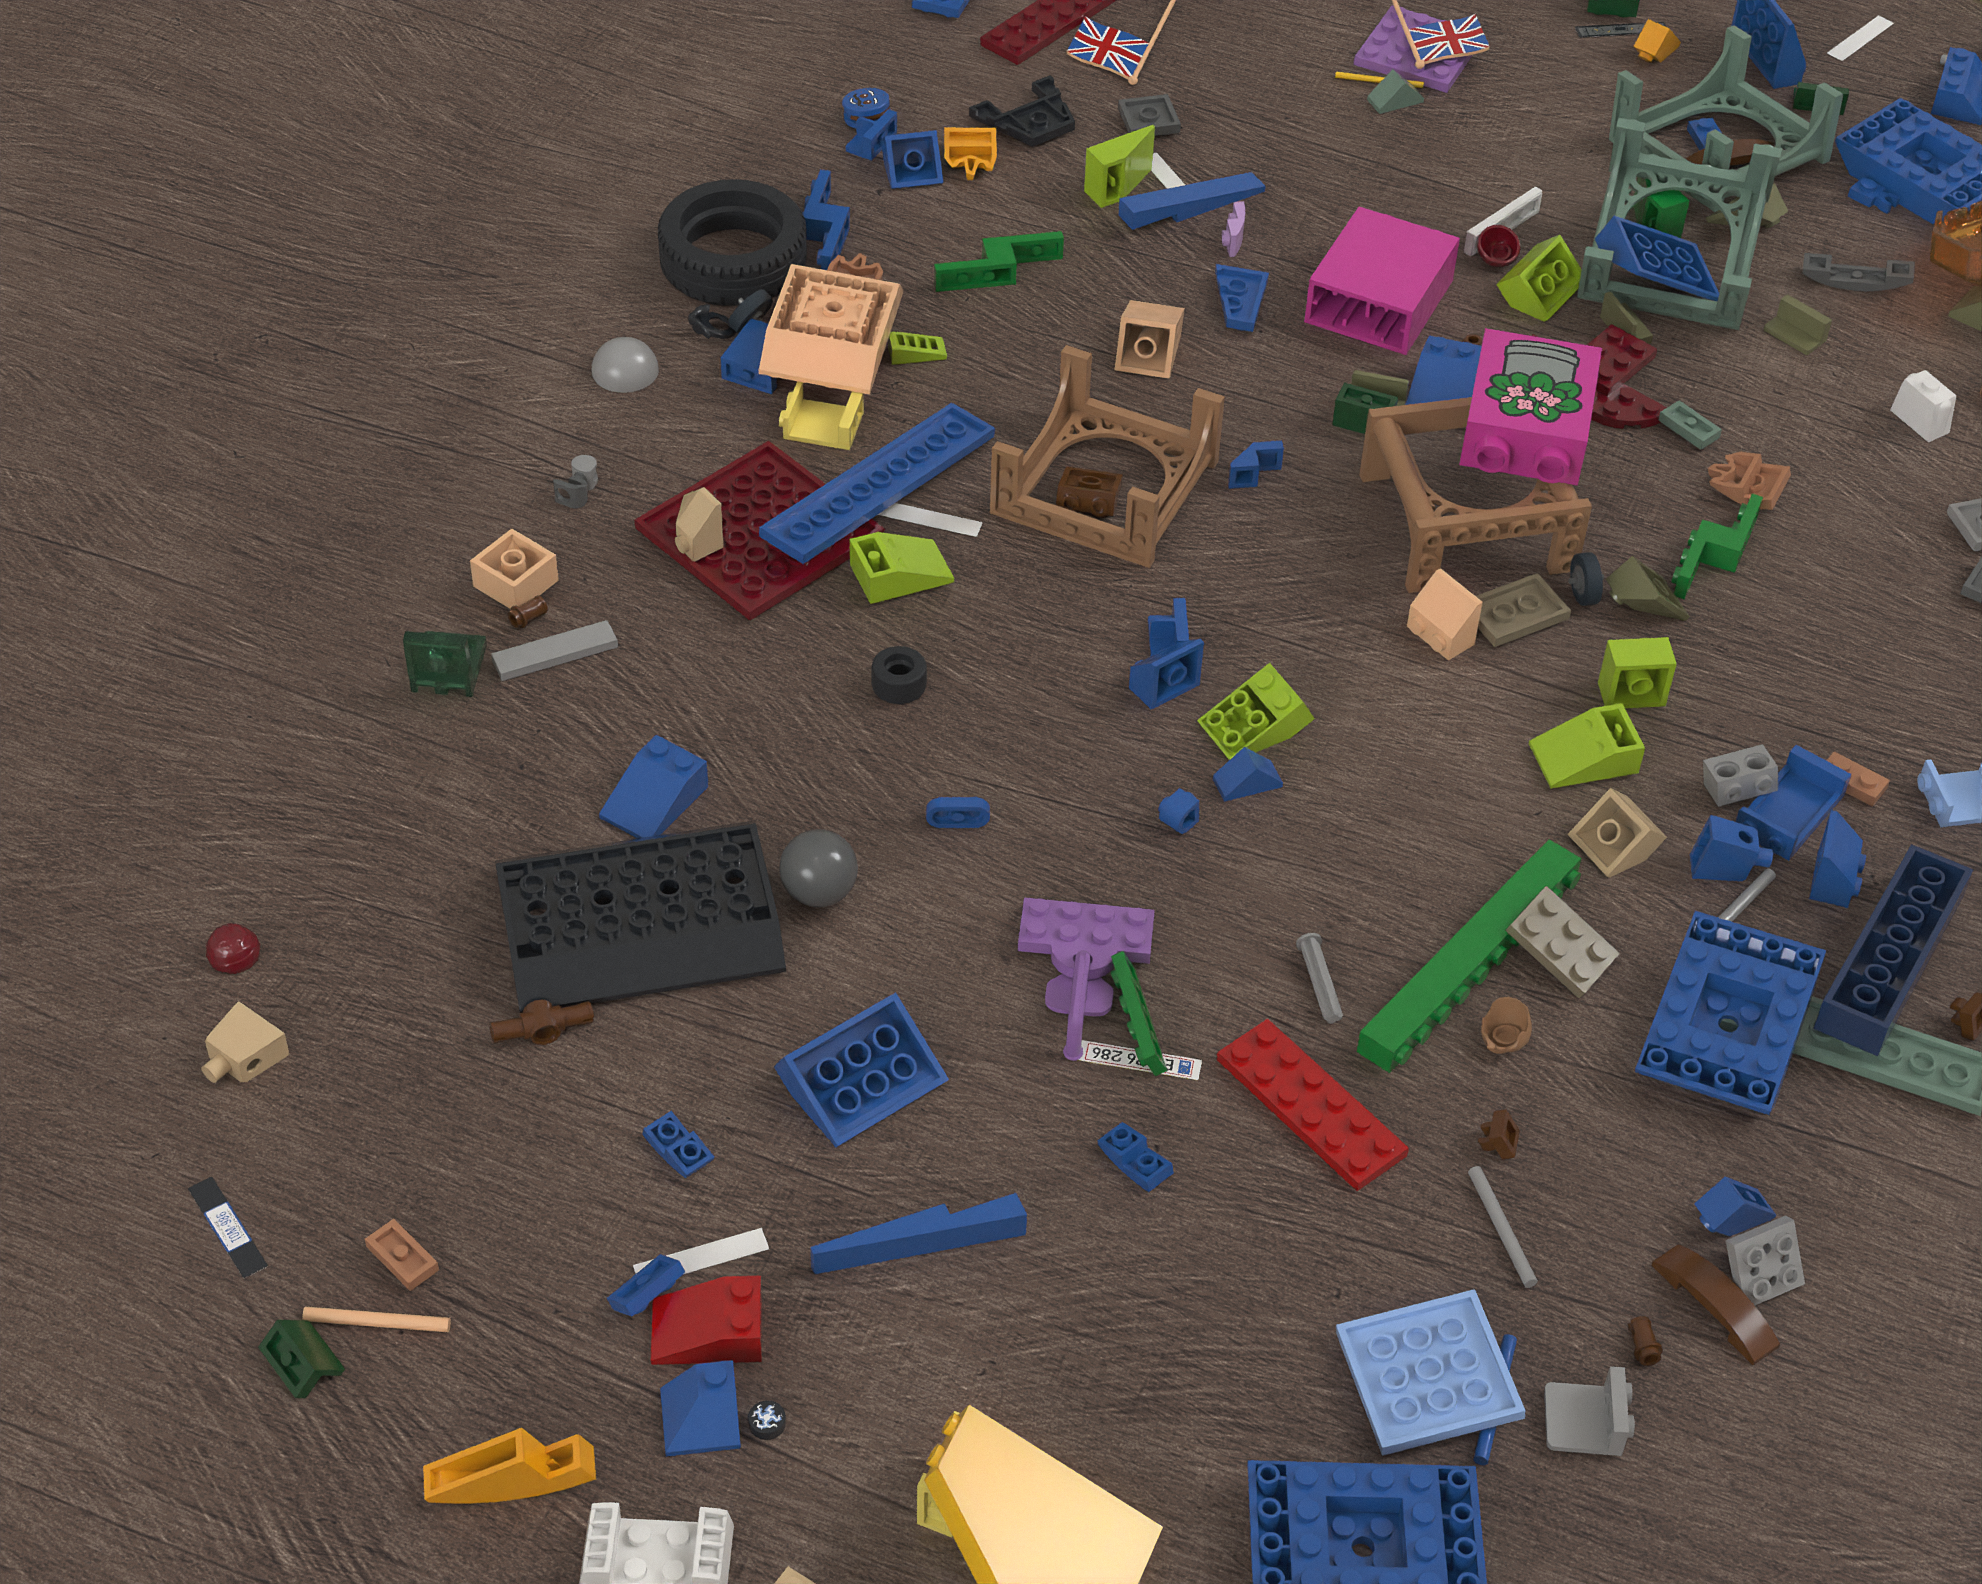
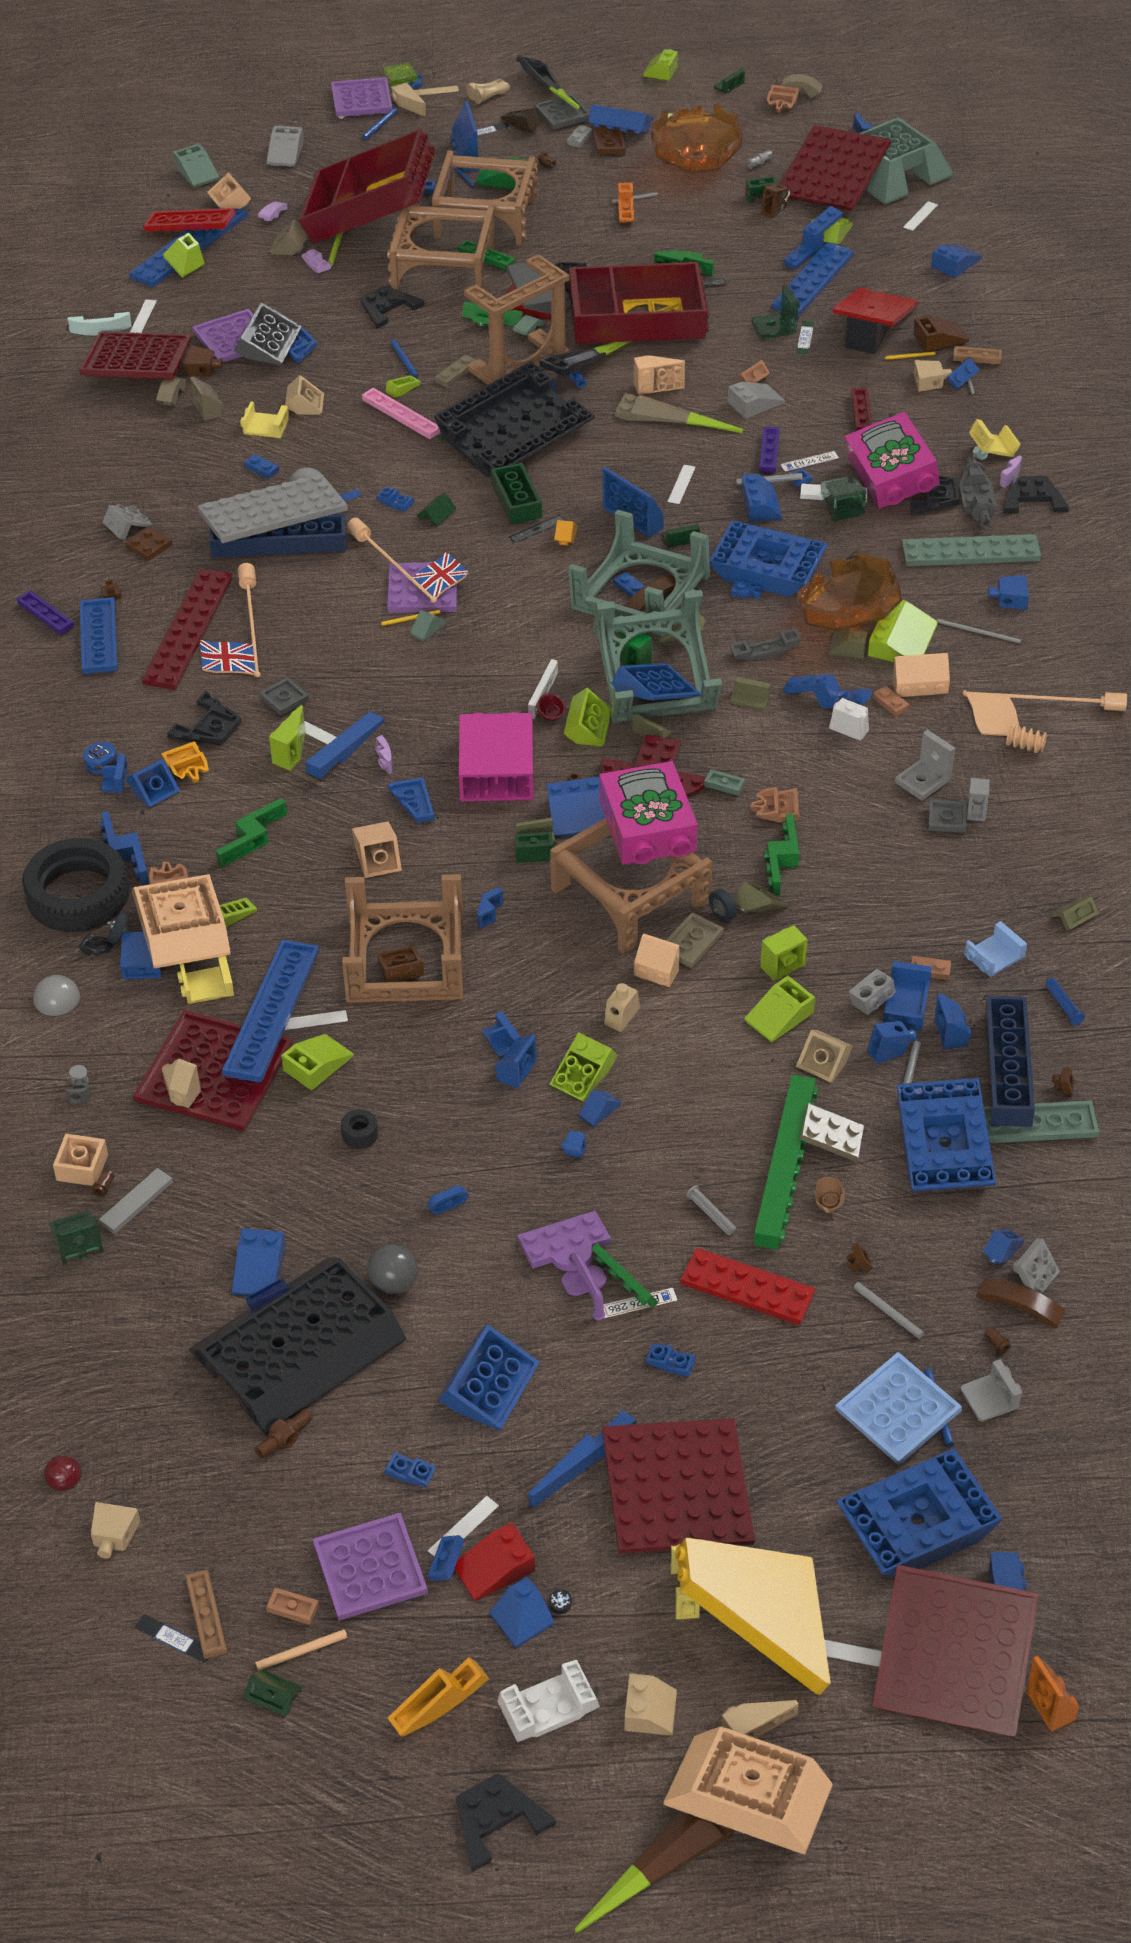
camera: 25 degrees left, 0 degrees up
(287, 1213) = (206, 1614): none -> medium nougat tile
(538, 1250) = (370, 1566): none -> medium lavender plate
(637, 832) = (266, 1293): none -> clear blue tile
(1031, 1333) = (676, 1484): none -> dark red plate
(1357, 656) = (626, 1002): none -> tan torso
(1911, 354) = (826, 690): none -> blue bracket

